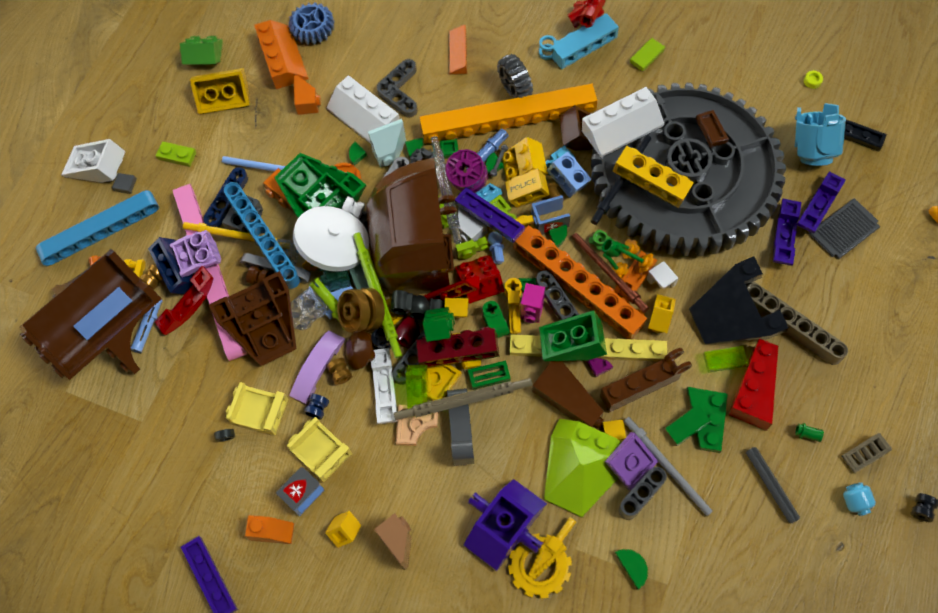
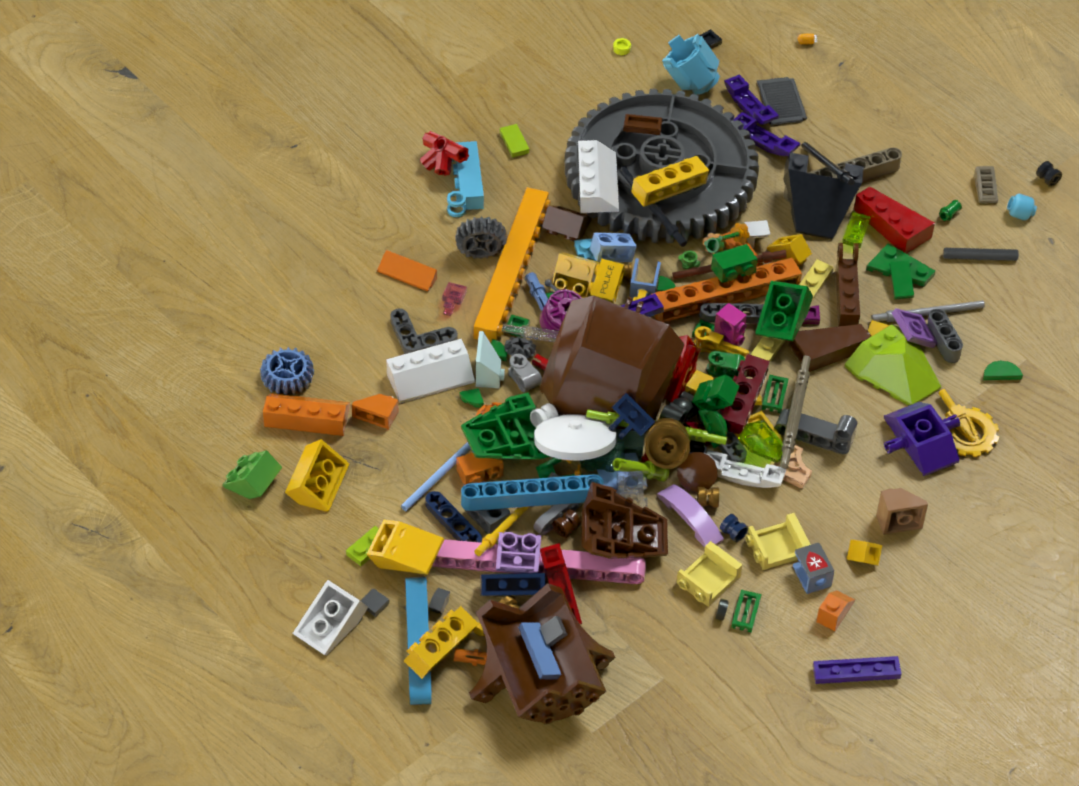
camera: 70 degrees left, 15 degrees down
(57, 238) = (440, 642): none -> yellow brick
(121, 314) = (553, 631): none -> dark grey tile
(140, 224) = (439, 601): none -> dark grey piece
(168, 174) = (404, 548): none -> yellow slope
(252, 445) = (743, 625): none -> green tile
(365, 267) = (632, 414): none -> dark blue hinge
(410, 338) = (713, 423): none -> green tile
(451, 91) = (453, 295): none -> clear pink plate
(600, 272) = (732, 262): none -> green brick
(762, 312) = (841, 174): none -> black bar

